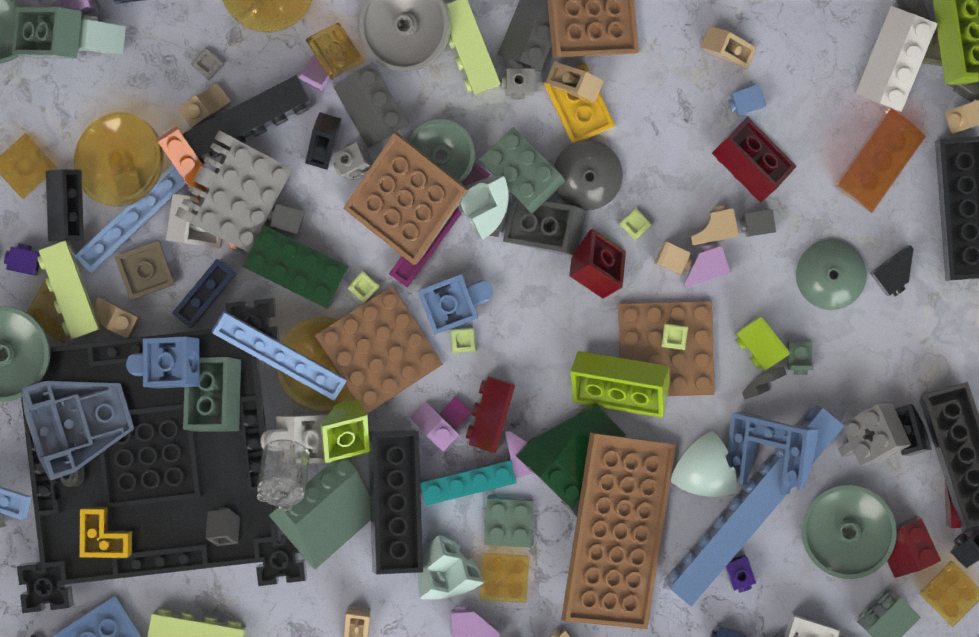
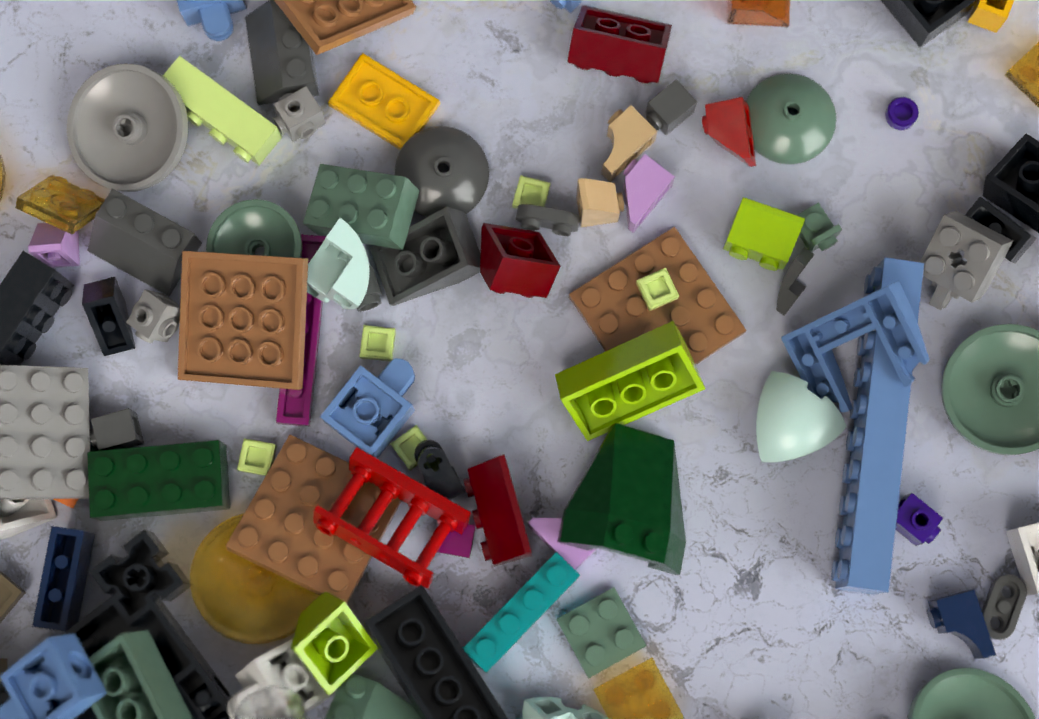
camera: 30 degrees left, 10 degrees down
(279, 355) = (189, 594): light blue plate -> none
(434, 426) = (449, 570): lavender slope -> none
(437, 360) = (392, 485): none -> red fence
(469, 367) = (438, 474): none -> black piece
(480, 260) = (377, 343): none -> yellowish green tile
(574, 81) = (362, 74): tan slope -> none
(618, 531) = (740, 560): medium nougat plate -> none
(642, 255) = (560, 221): none -> dark grey plate
(787, 262) = (730, 127): none -> red slope
(894, 272) = (859, 70): black slope -> none
(904, 316) = (901, 113): none -> dark purple tile

